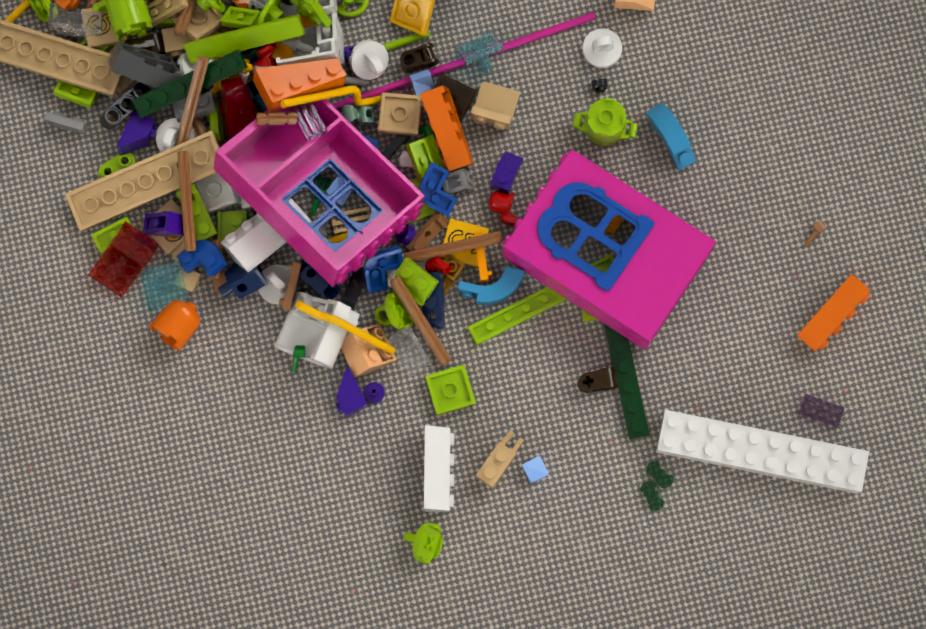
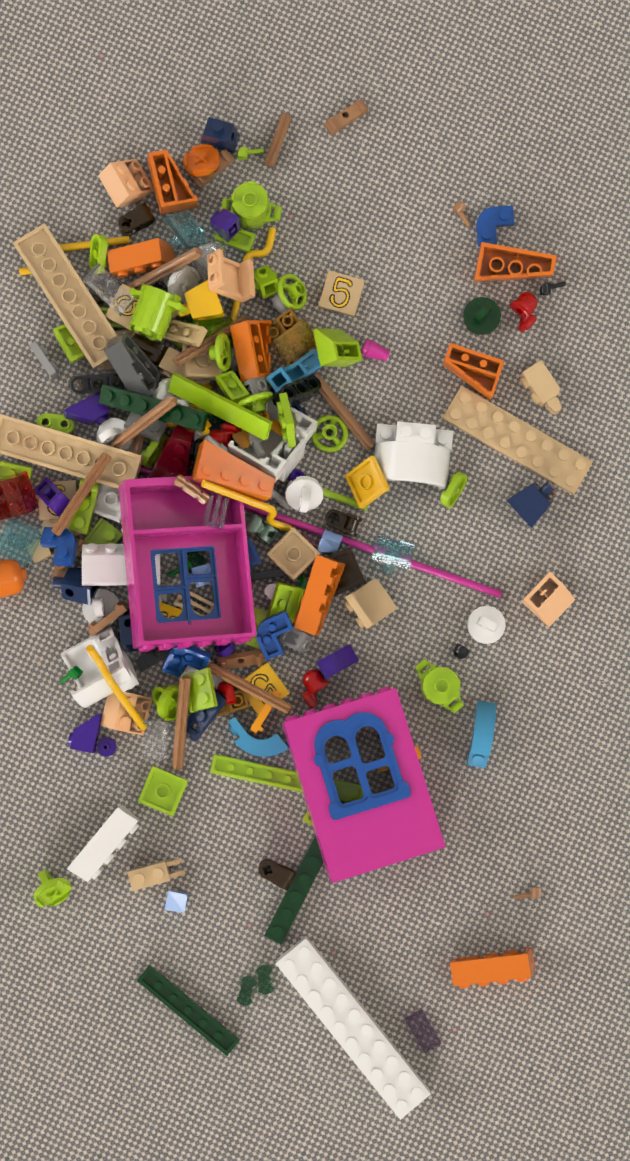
camera: 35 degrees right, 5 degrees up
(617, 549) = (188, 1010): none -> dark green plate

